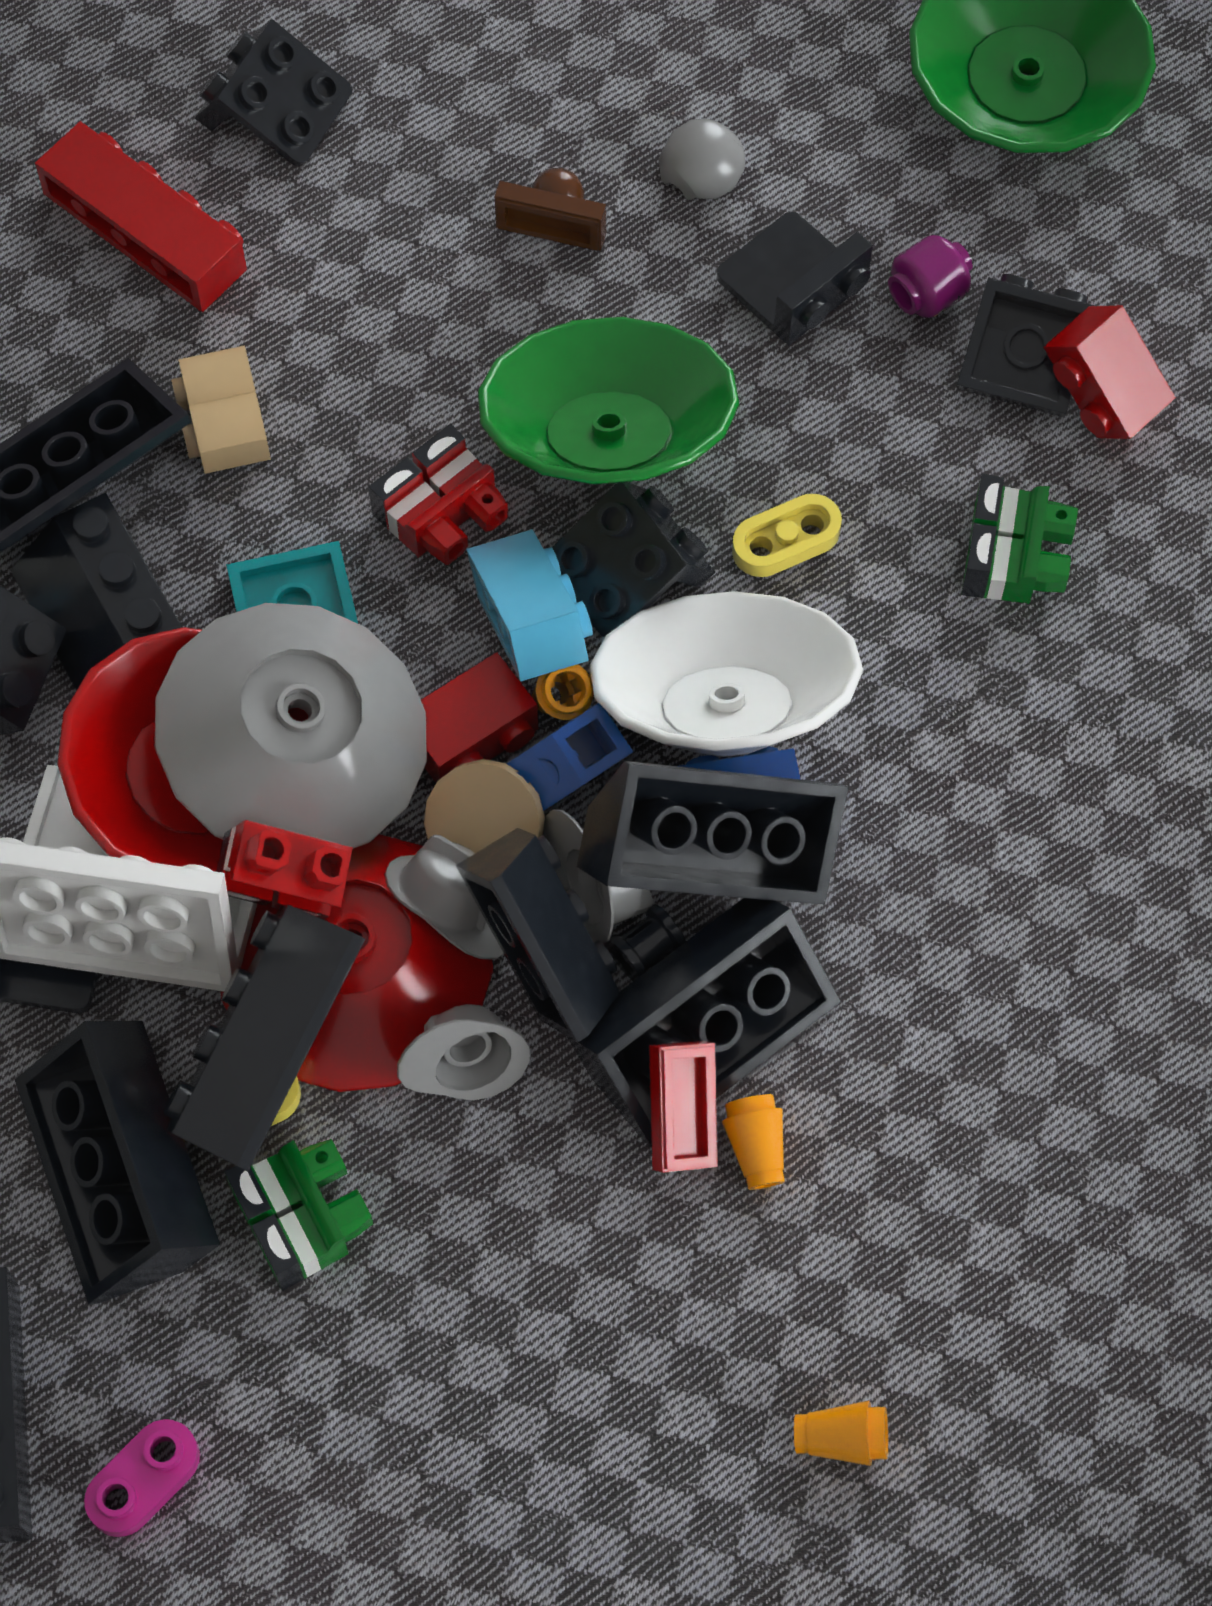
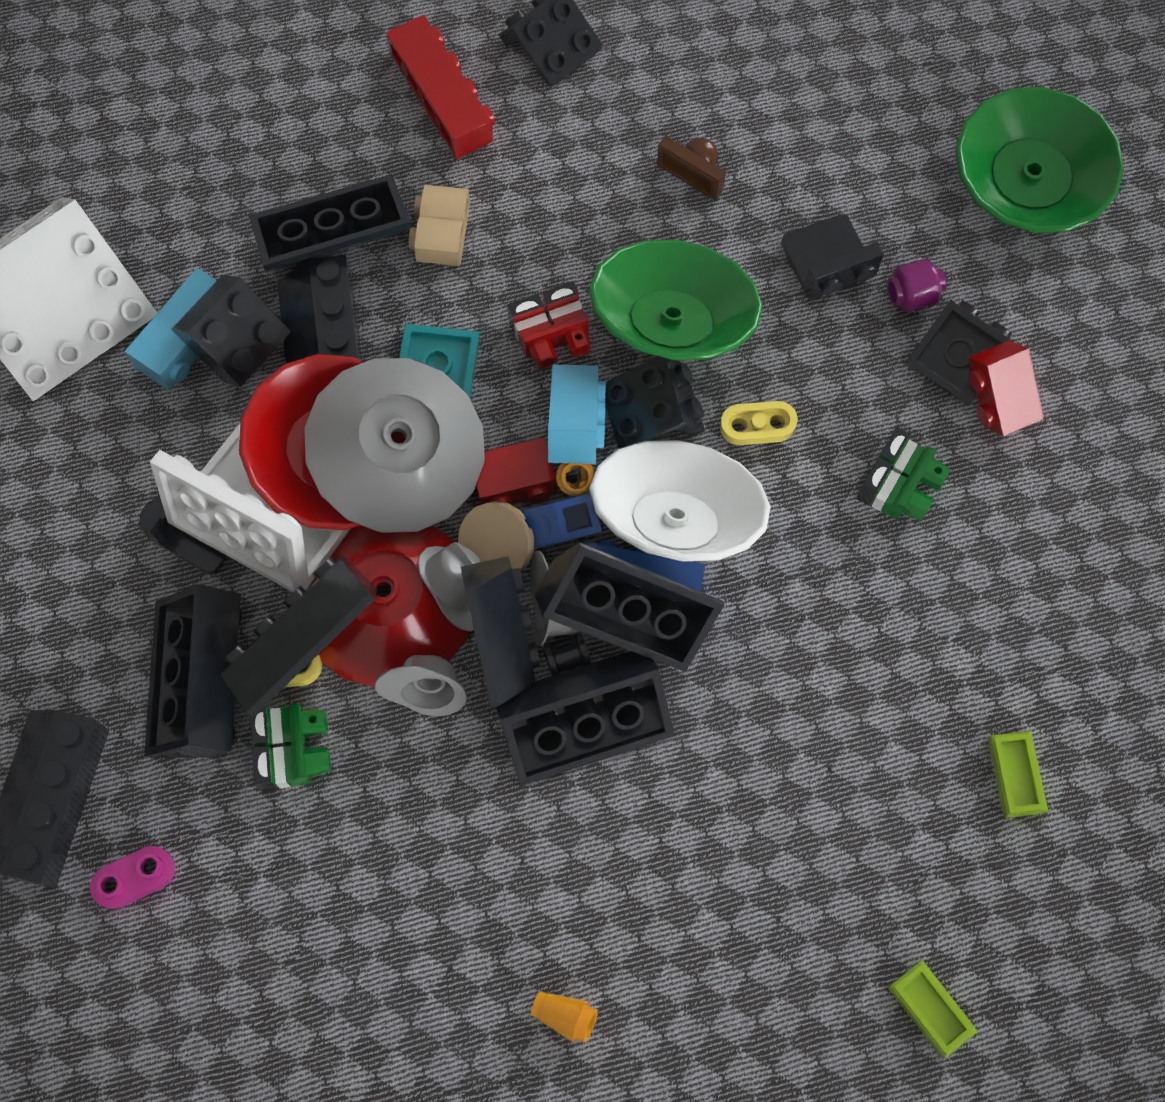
camera: 20 degrees right, 5 degrees up
(295, 866) = (350, 531): red hips -> none
(683, 1106) = (546, 769): tile -> none
(702, 159) = (801, 162): light grey hair -> none
(757, 1139) = (585, 806): light orange cone -> none

